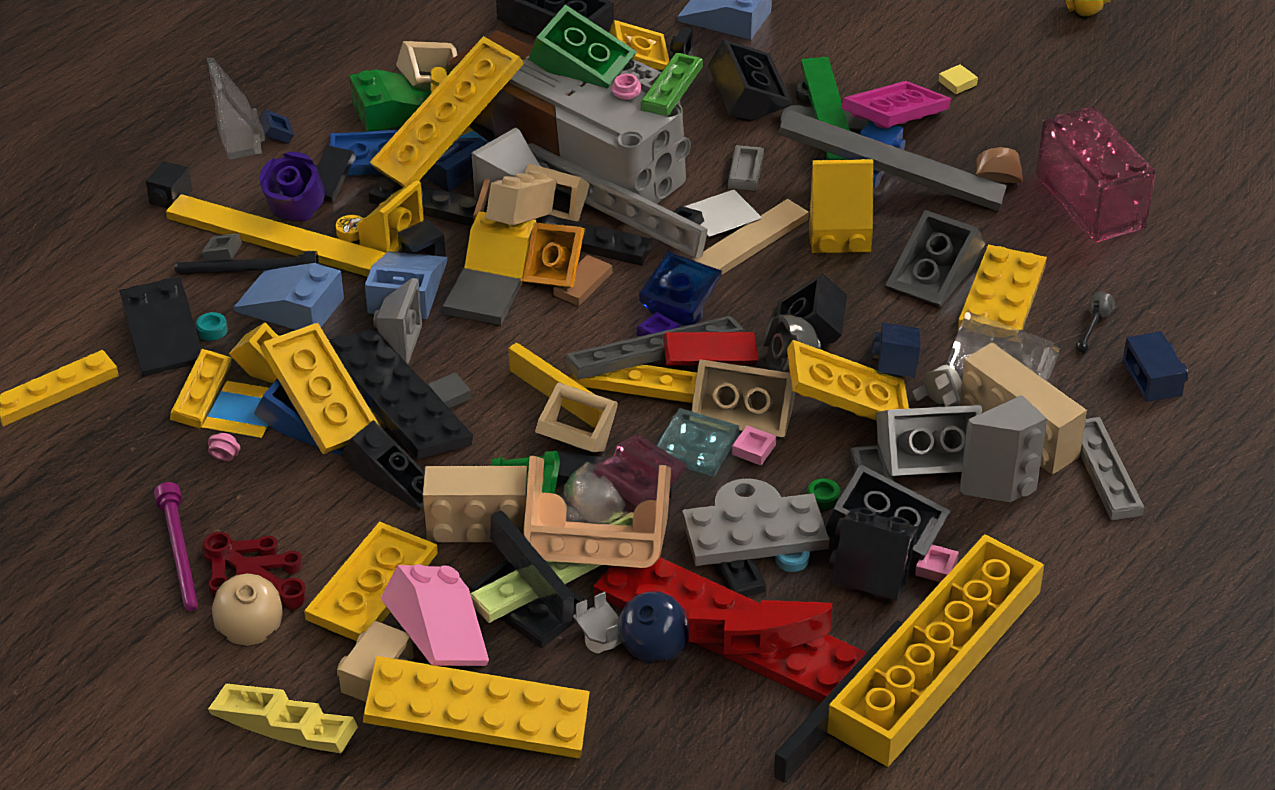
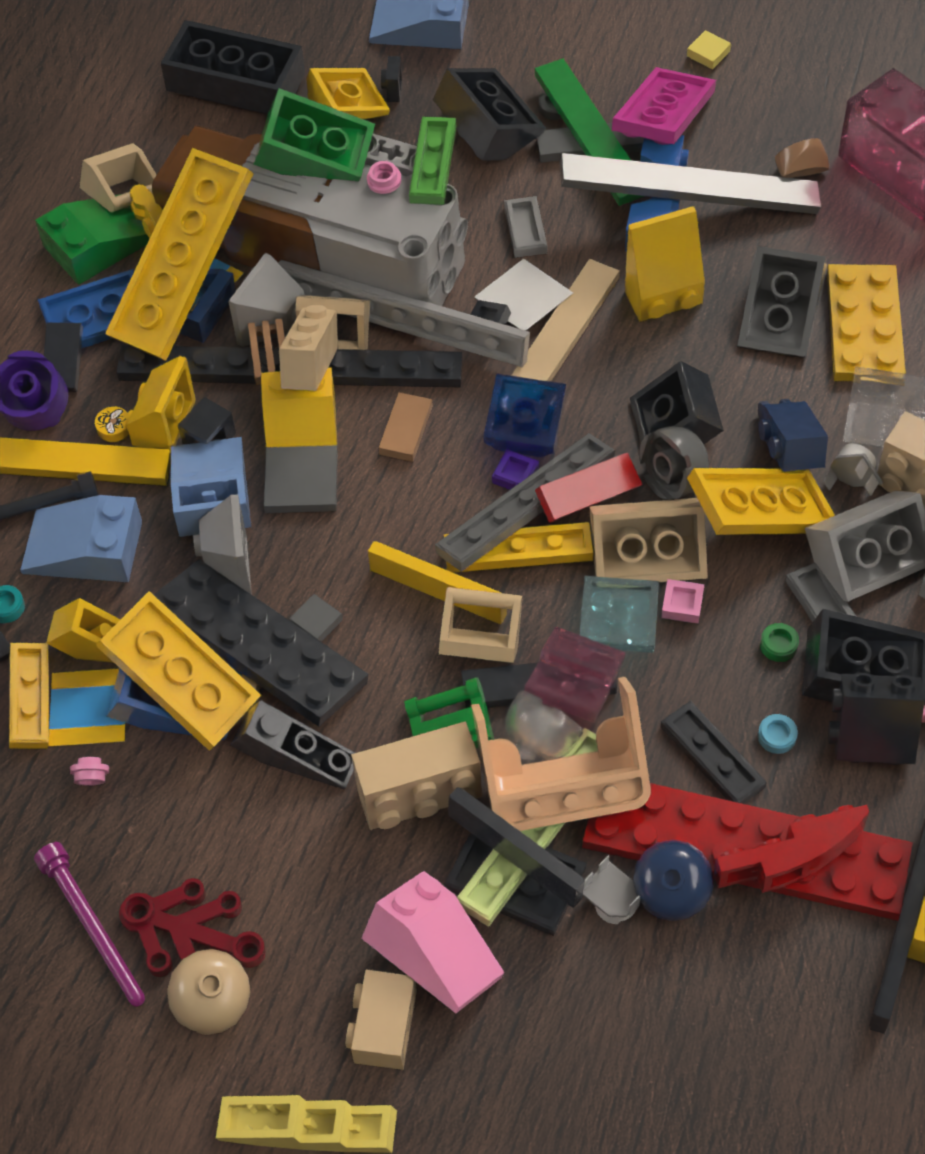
camera: 15 degrees left, 15 degrees up
(354, 593) = (332, 909): yellow plate -> none
(477, 707) = (522, 1048): yellow plate -> none
(553, 255) = (368, 408): light orange slope -> none
(753, 524) = (725, 709): light grey plate -> none

